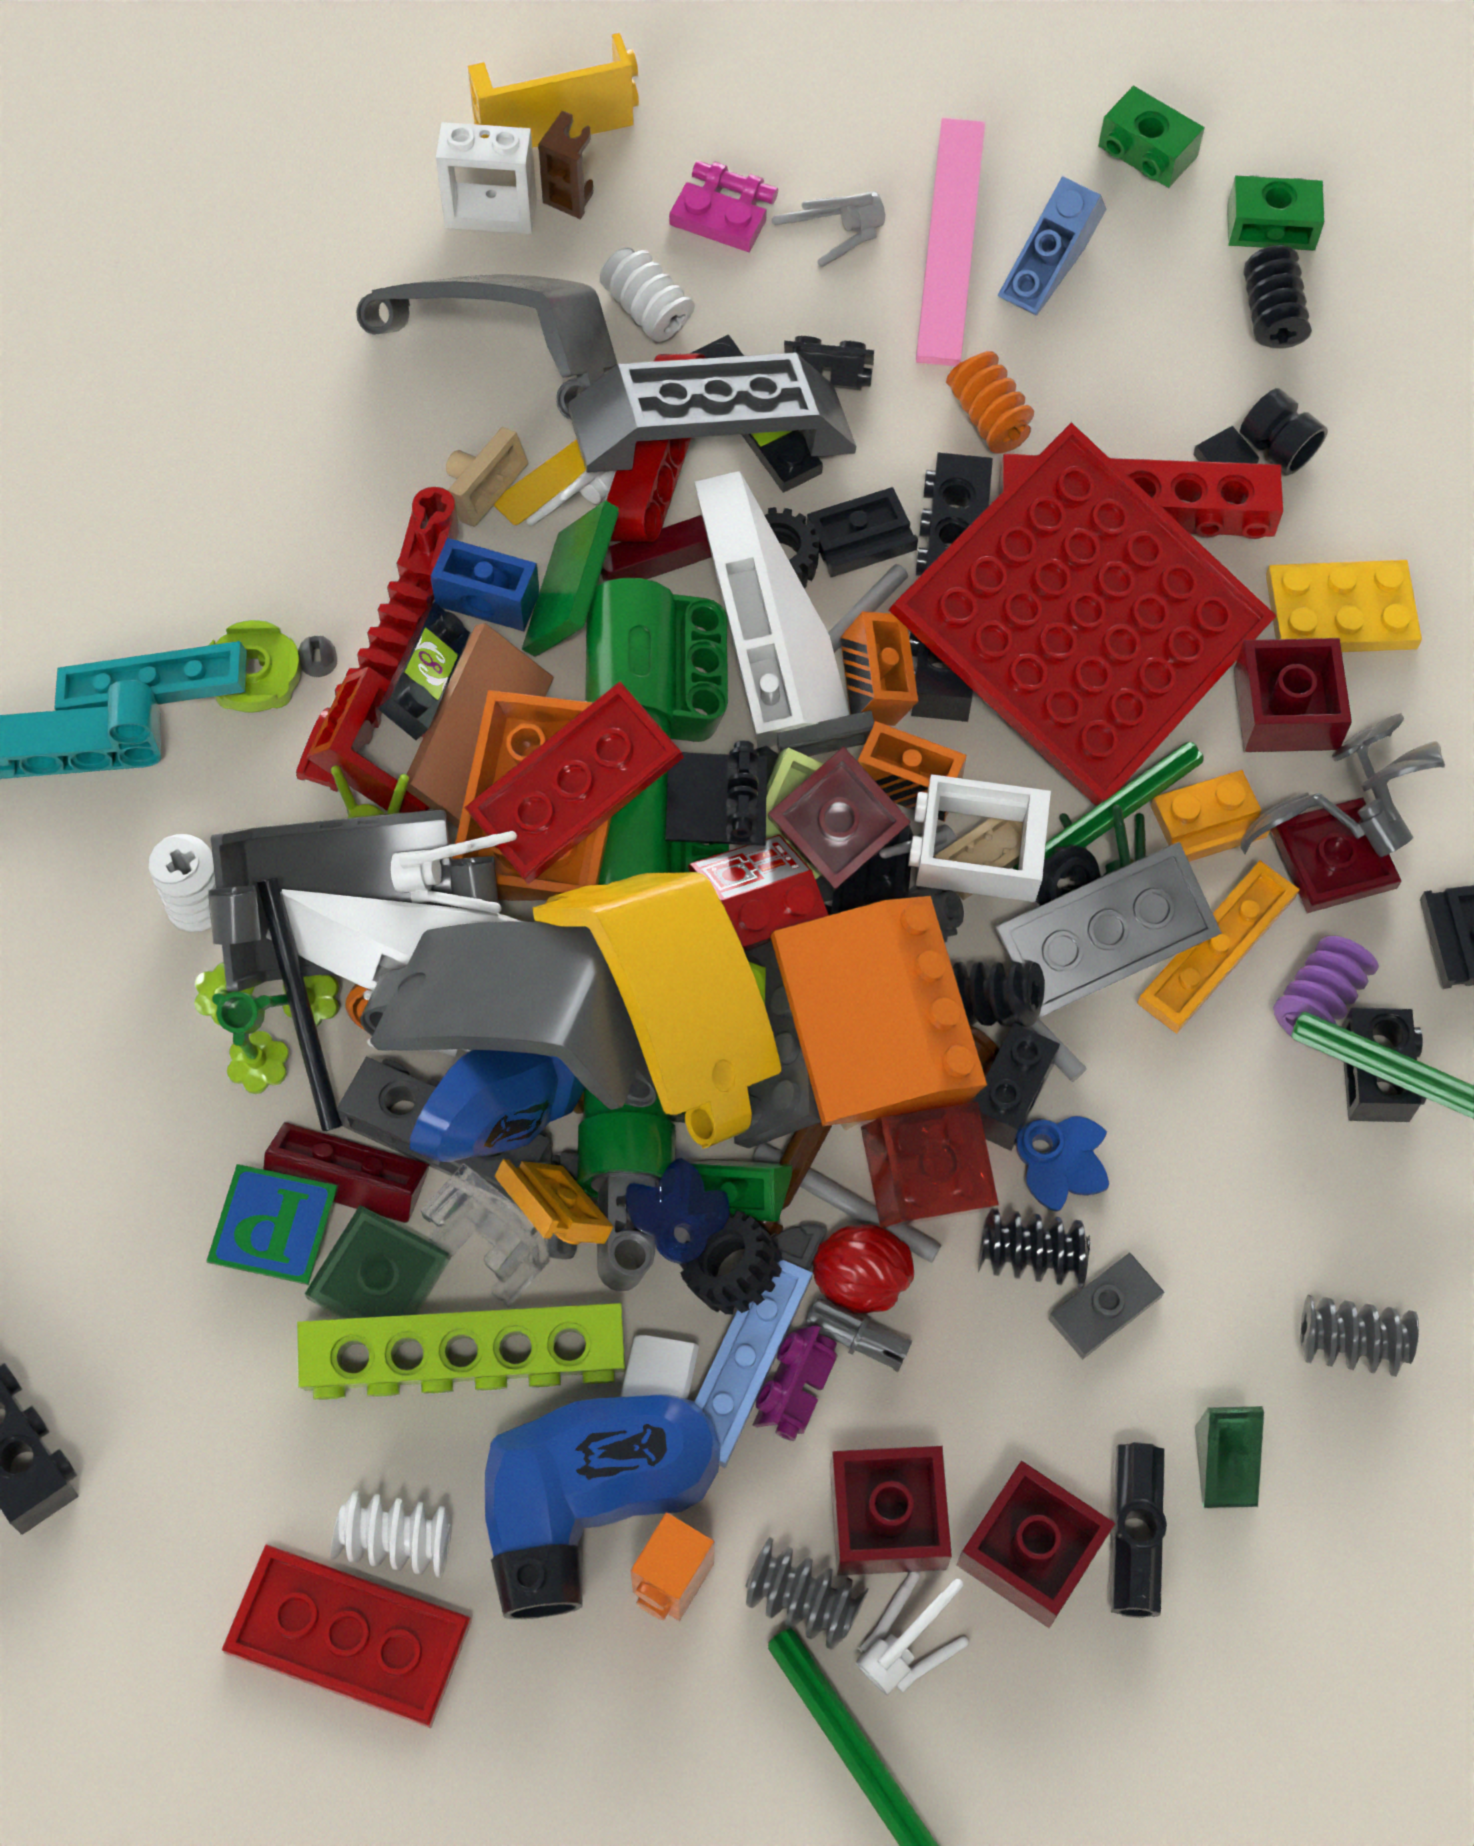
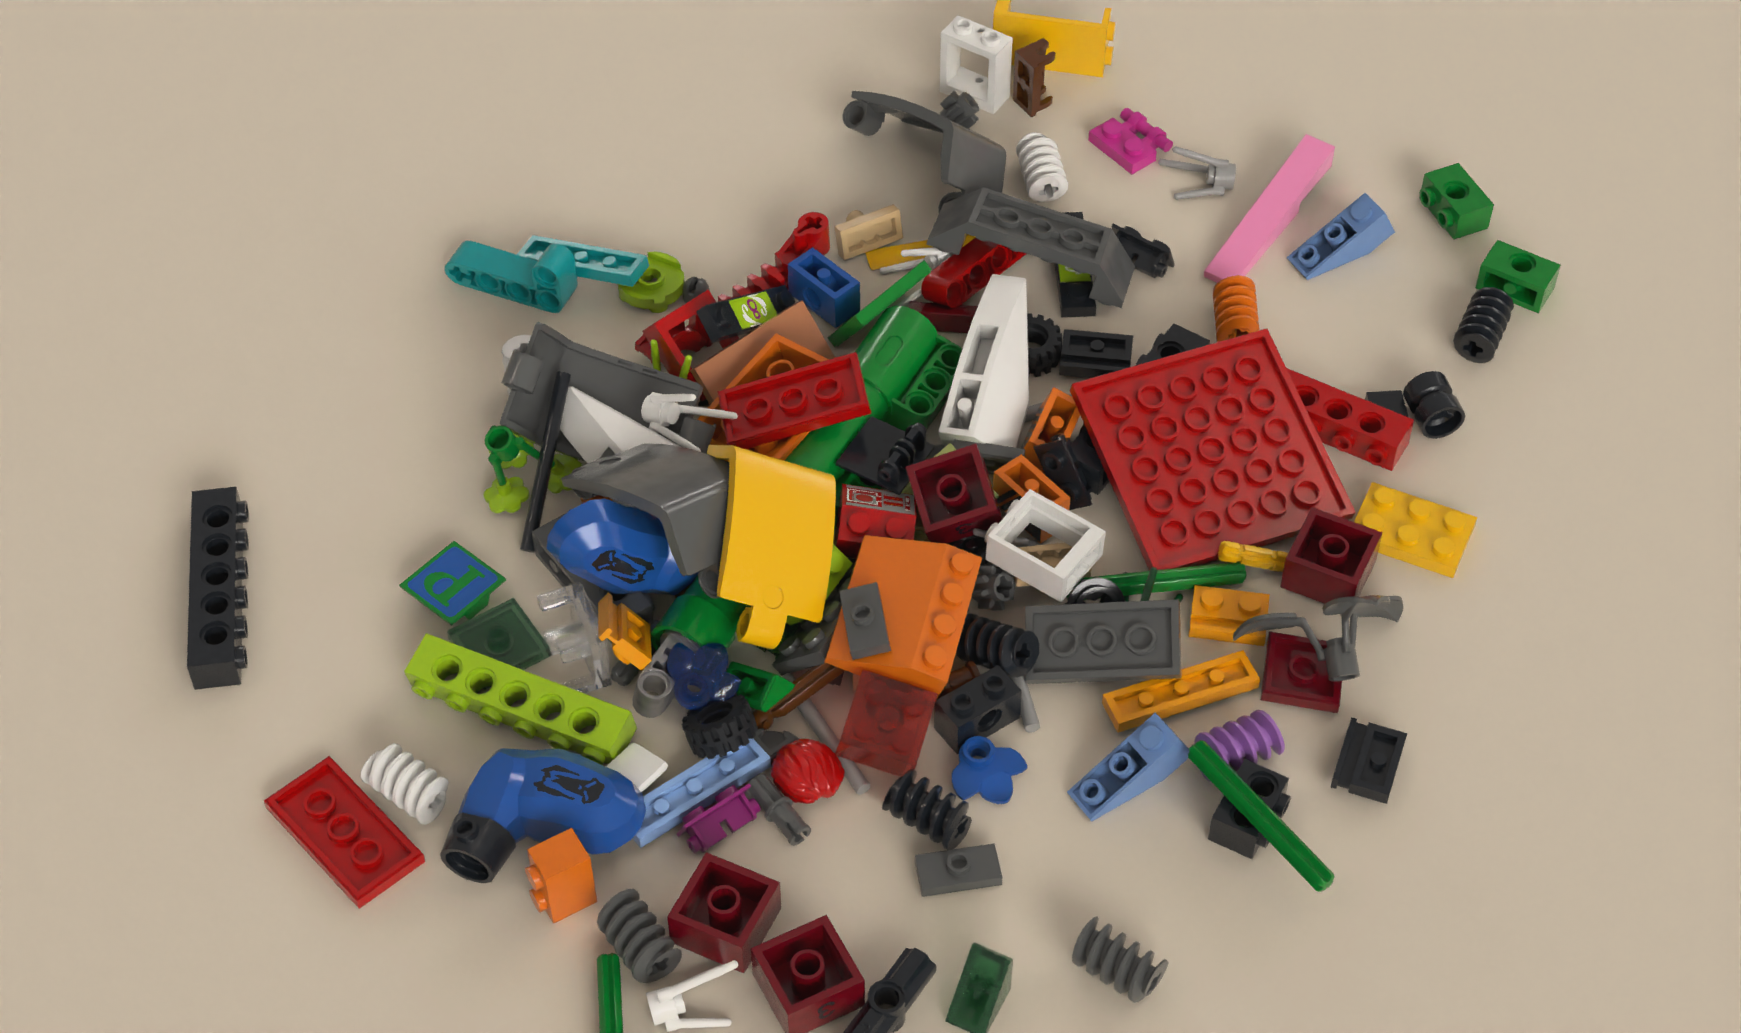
camera: 30 degrees right, 15 degrees down
(363, 1174) = (522, 576): dark red slope -> none
(497, 250) = (960, 109): none -> dark grey gear
(850, 1053) = (865, 621): none -> dark grey plate
(929, 717) = (1059, 466): none -> black hinge
(1200, 728) = (1252, 556): none -> yellow axle
(1222, 1081) = (1130, 768): none -> medium blue slope

